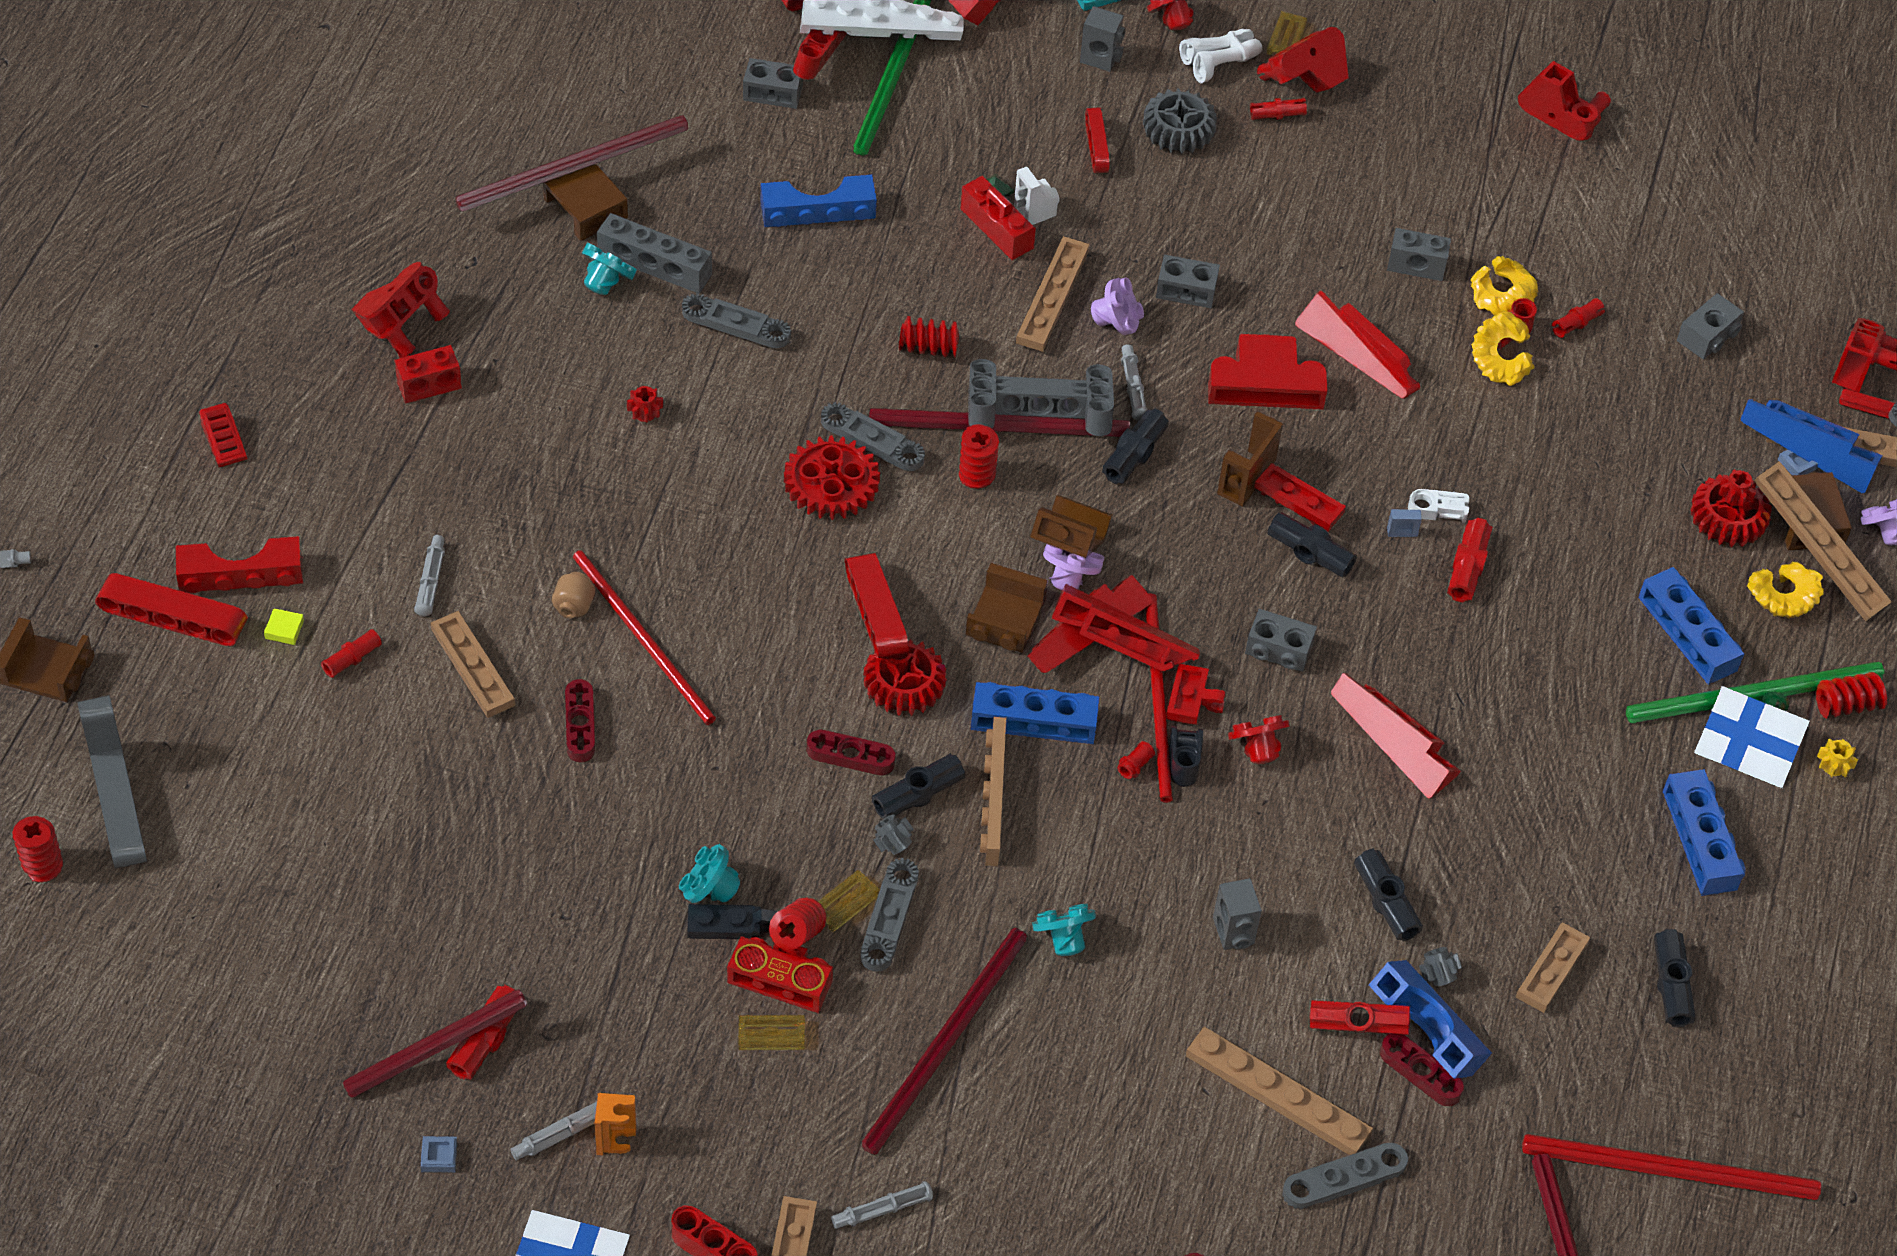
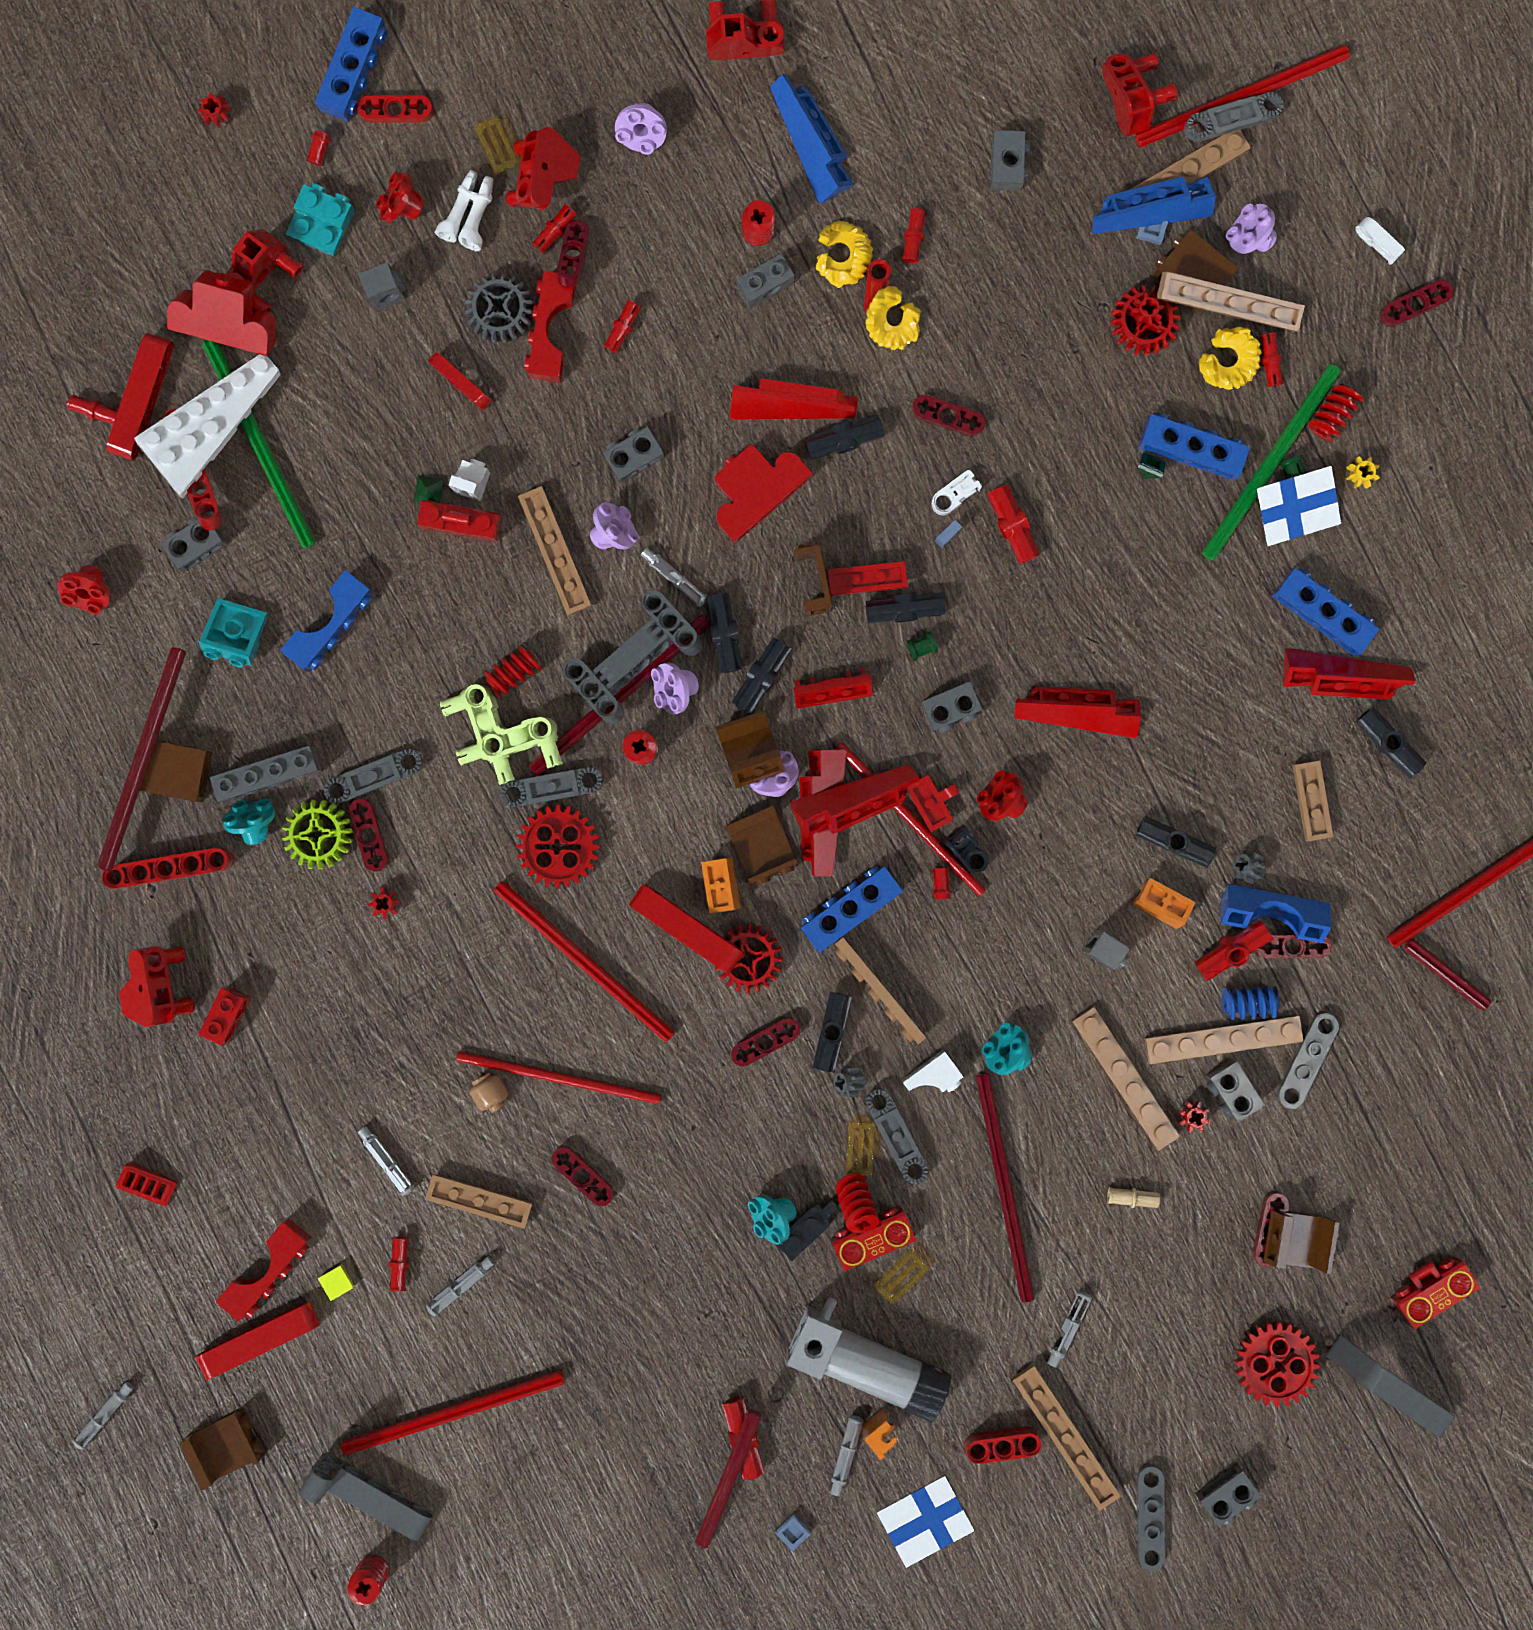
camera: 40 degrees left, 35 degrees up
(261, 800) = (452, 1412): none -> red axle
(380, 712) = (459, 1286): none -> light grey piece
(504, 252) = (155, 870): none -> red beam
(643, 1014) = (866, 1364): none -> light grey piece
(647, 328) = (295, 836): none -> lime gear
(656, 44) = (84, 589): none -> red plate
(685, 367) = (370, 814): none -> dark red beam
(735, 153) = (233, 633): none -> teal plate
(761, 575) = (586, 963): none -> red axle
(868, 373) = (488, 727): none -> yellowish green pin
(940, 607) = (721, 885): none -> orange hinge
(976, 890) = (937, 1072): none -> white arch
(1053, 444) = (673, 687): none -> lavender plate
(1058, 1146) = (1133, 1197): none -> tan axle
(1137, 496) = (761, 675): none -> black piece
(1151, 1048) = (1125, 1078): none -> medium nougat plate
(1186, 551) = (832, 690): none -> red plate
(1186, 1133) = (1201, 1117): none -> red gear
(1233, 145) = (545, 360): none -> red arch
(1248, 1135) = (1238, 1087): none -> brick
(1267, 201) = (622, 326): none -> red pin
(1277, 126) = (575, 262): none -> dark red beam
(1299, 581) = (922, 646): none -> dark green bush
(1327, 931) = (1163, 903): none -> orange hinge
(1335, 1075) = (1250, 1001): none -> blue piece
(1380, 397) = (844, 437): none -> black piece
(1415, 94) = (640, 128): none -> lavender plate
(1451, 209) = (758, 223): none -> red piece
(1488, 463) = (964, 429): none -> dark red beam
(1553, 204) = (813, 139): none -> blue wedge
(1636, 613) = (1151, 466): none -> dark green slope
(1675, 896) = (1343, 675): none -> red wedge
(1824, 620) = (1271, 359): none -> red pin

